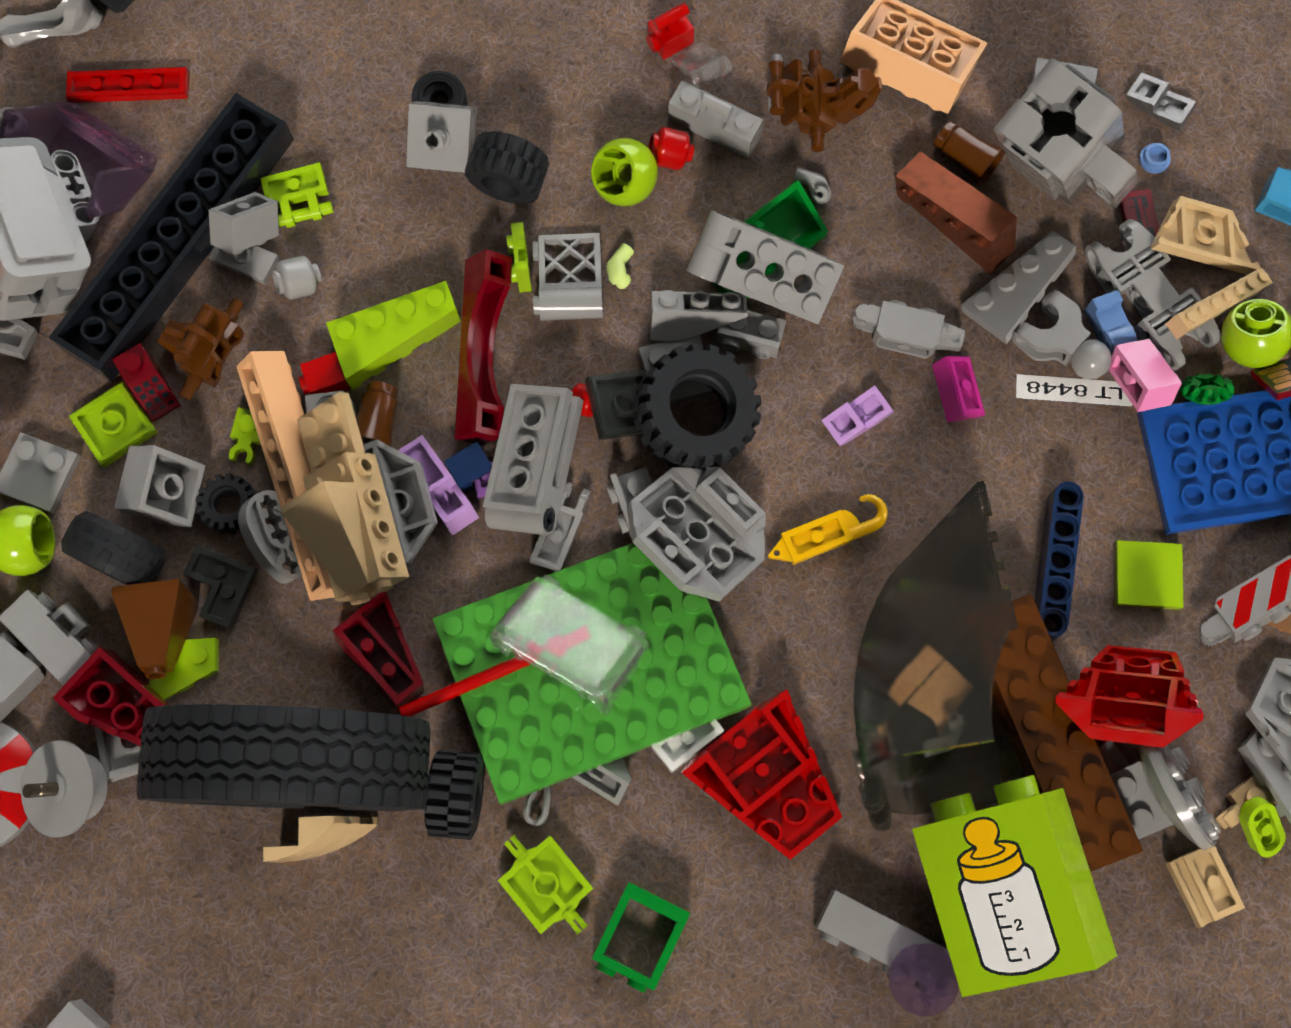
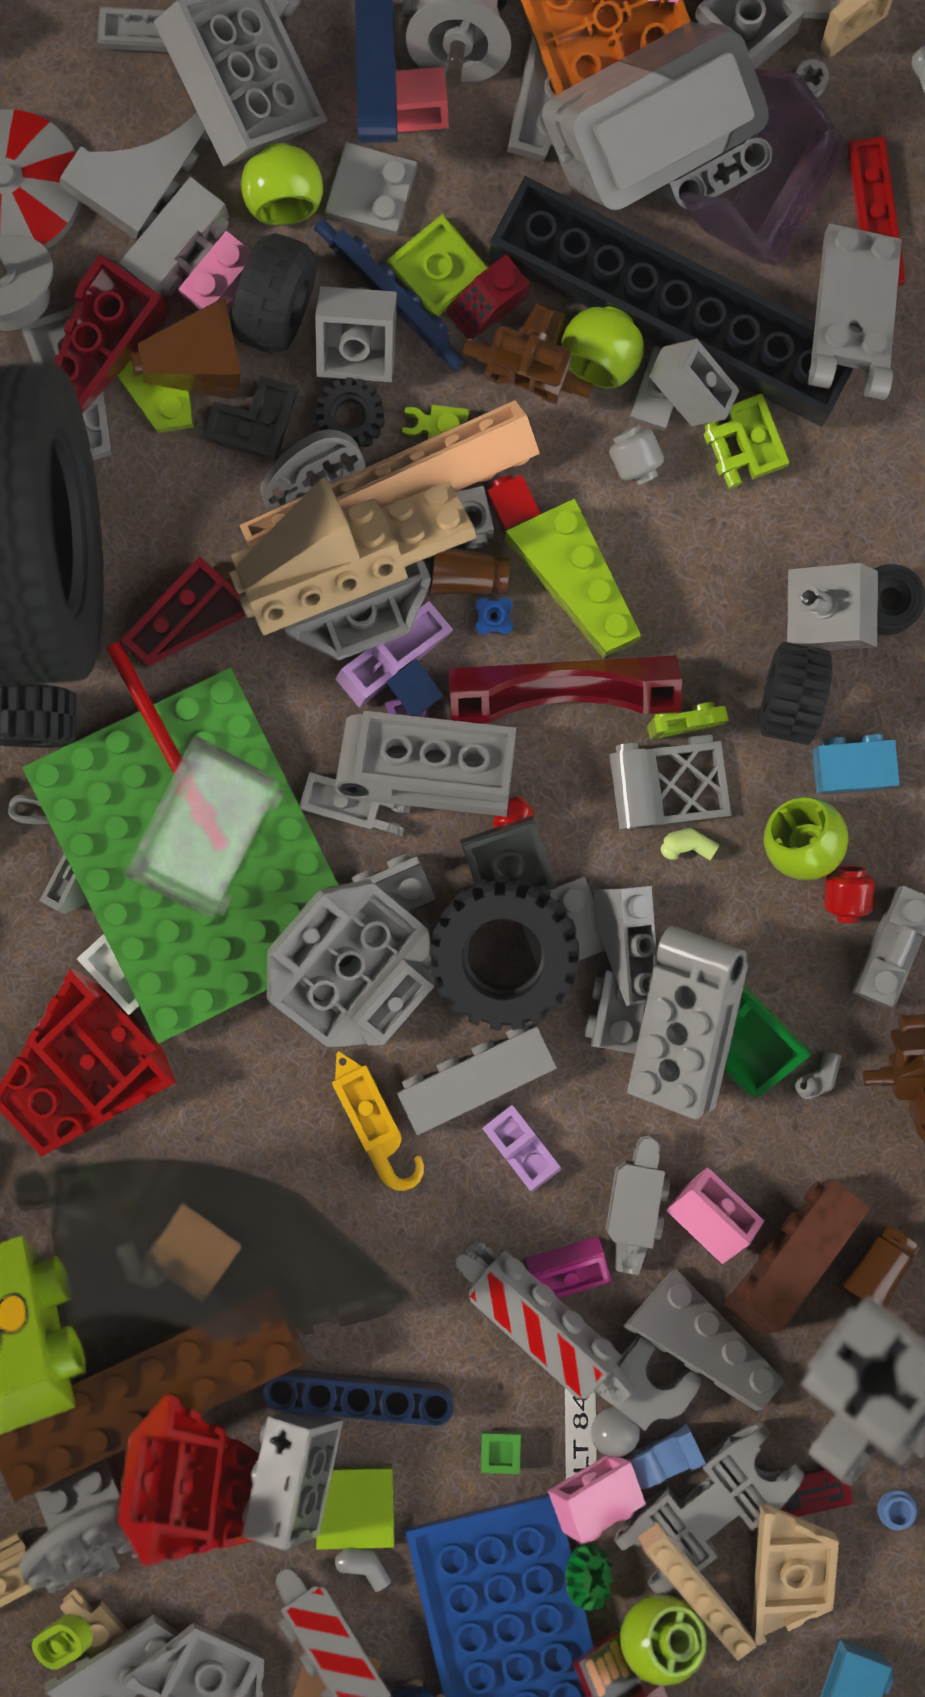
camera: 85 degrees right, 10 degrees up
(90, 601) = (216, 274): none -> bright pink brick
(94, 486) = (381, 277): none -> dark blue plate
(191, 92) = (858, 290): none -> light grey hinge
(201, 283) = (603, 346): none -> lime wheel
(420, 409) = (501, 608): none -> blue plate
(569, 135) = (855, 766): none -> dark azure piece
(799, 446) = (475, 1080): none -> light grey brick
(920, 267) = (715, 1215): none -> bright pink brick
(1003, 404) = (543, 1325): none -> light grey hinge
(1105, 452) = (500, 1452): none -> bright green plate
(1126, 617) = (291, 1479): none -> light grey piece
(1194, 571) = (363, 1563): none -> light grey arm

